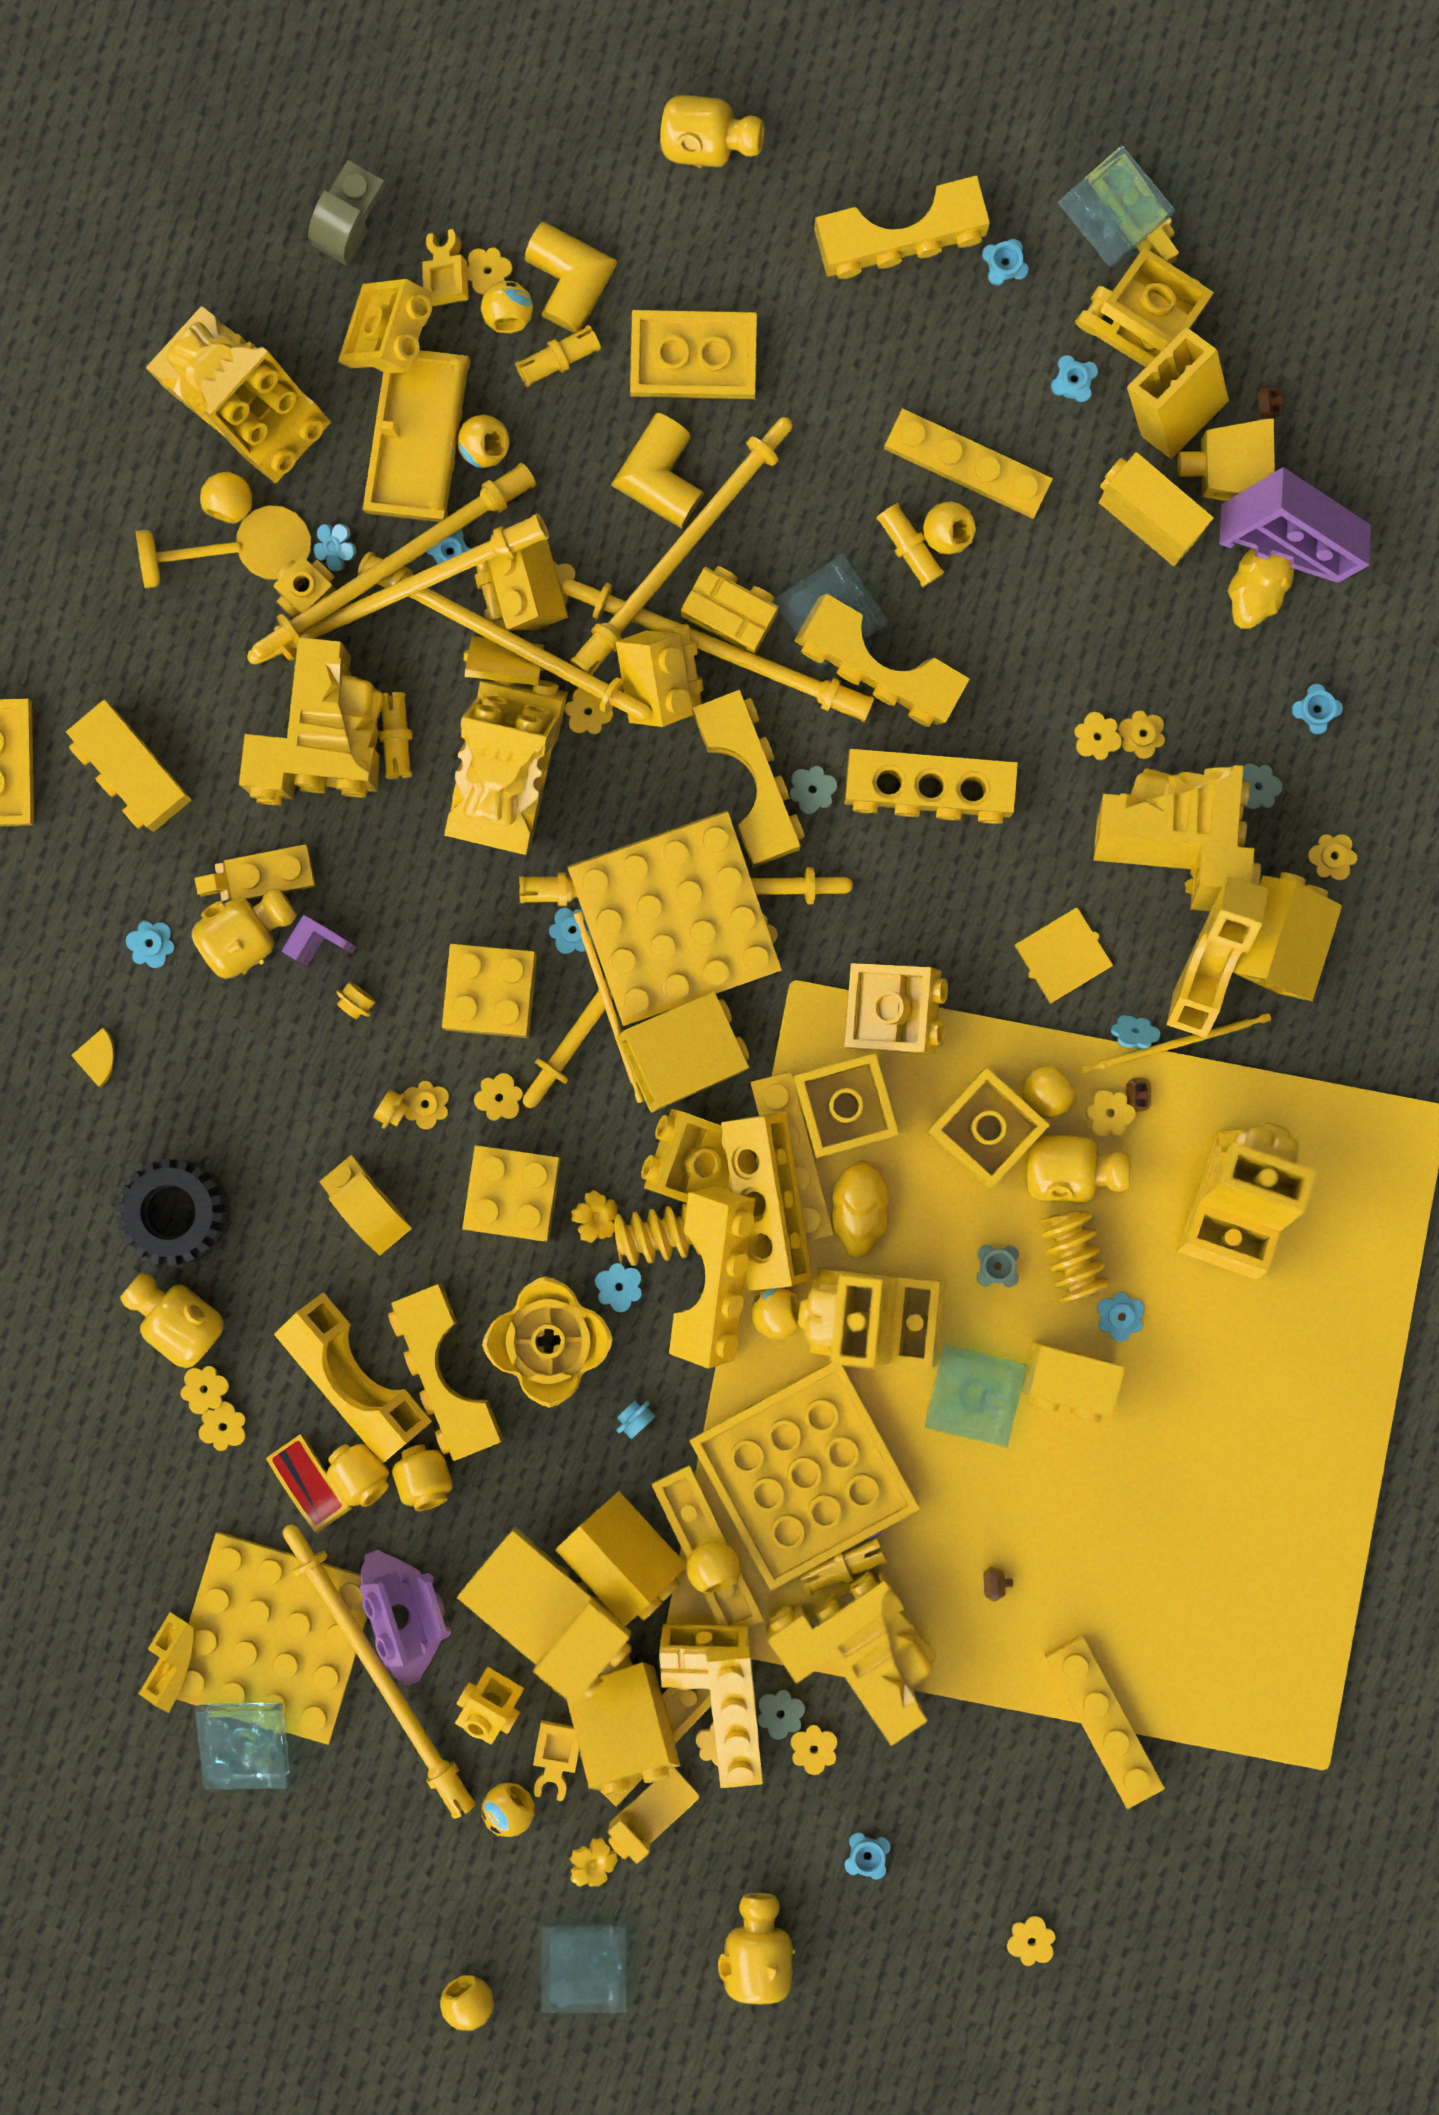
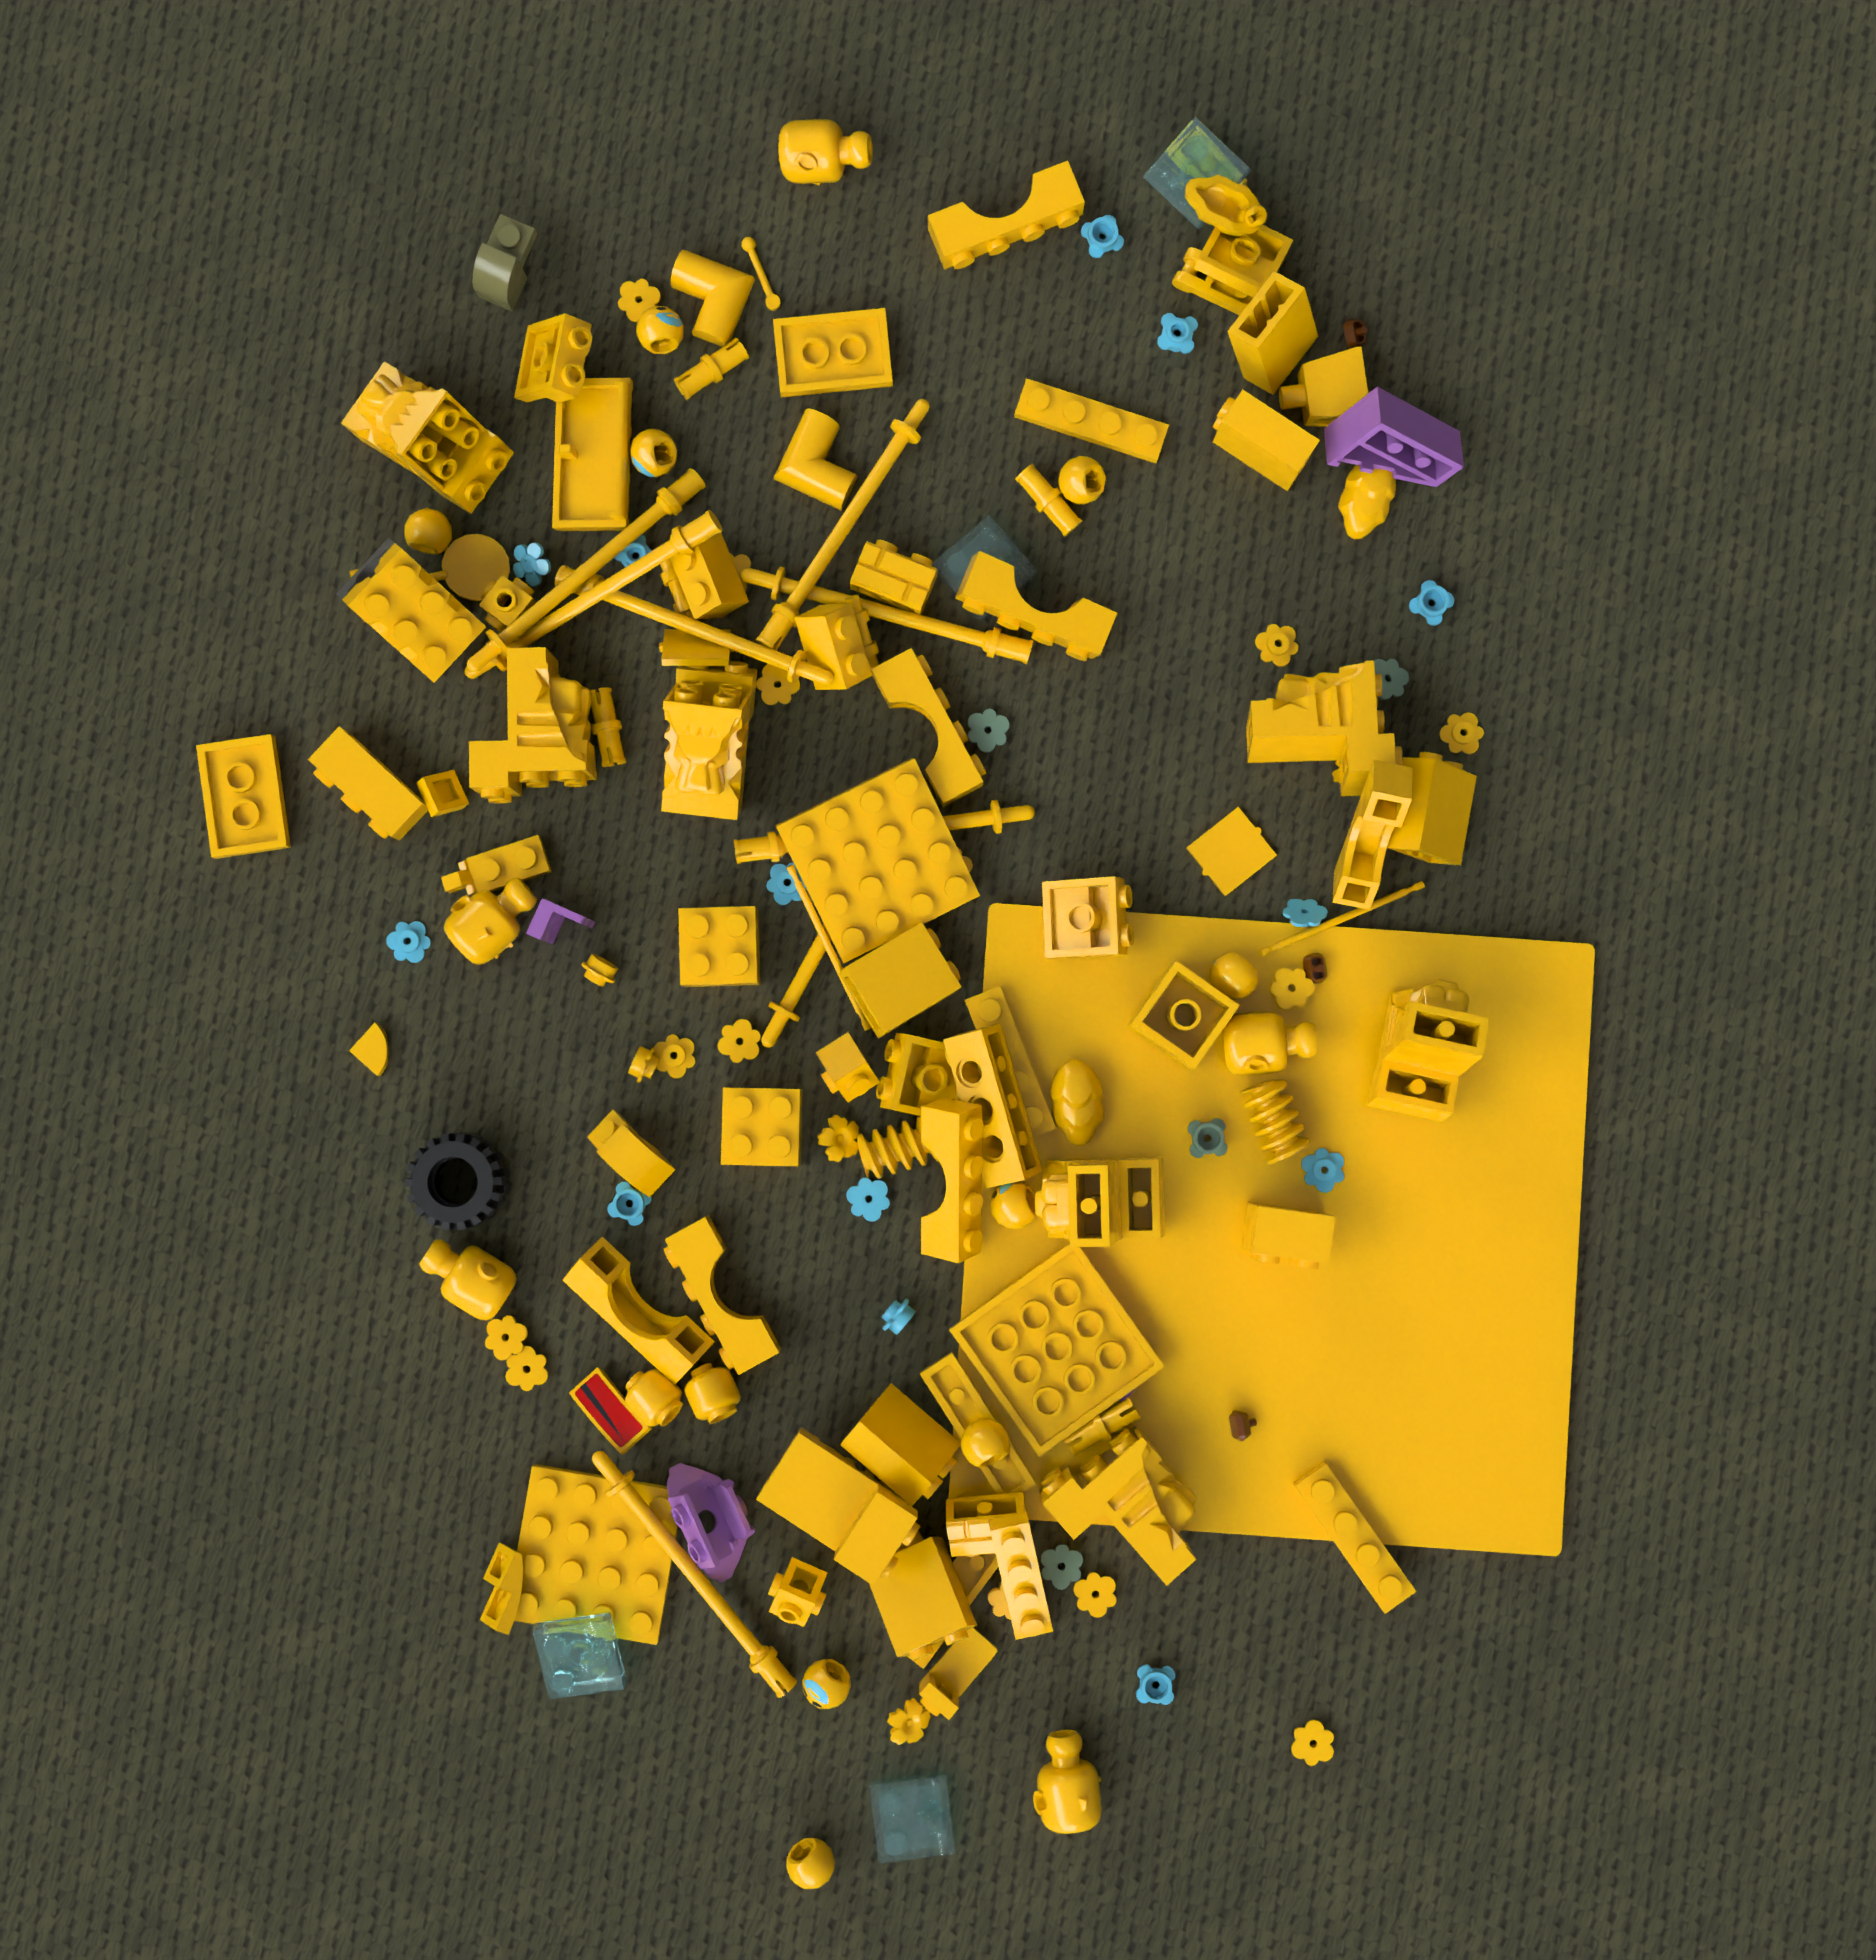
camera: 10 degrees left, 0 degrees up
(198, 582) = (411, 610): none -> yellow piece
(207, 786) = (442, 793): none -> yellow plate
(345, 1264) = (619, 1208): none -> medium azure plate
(447, 271) = (602, 305): yellow plate -> none
(514, 1345) = (780, 1261): yellow brick -> none
(557, 1752) = (863, 1626): yellow plate -> none
(612, 1141) = (846, 1068): none -> yellow brick
(634, 289) = (772, 300): none -> yellow hinge
(845, 1105) = (1053, 1010): yellow brick -> none
(975, 1395) = (1201, 1257): clear light blue hinge -> none
(994, 777) = (1150, 699): yellow brick -> none
(1096, 724) = (1244, 643): yellow plant -> none
(1143, 246) = (1225, 205): none -> yellow arm

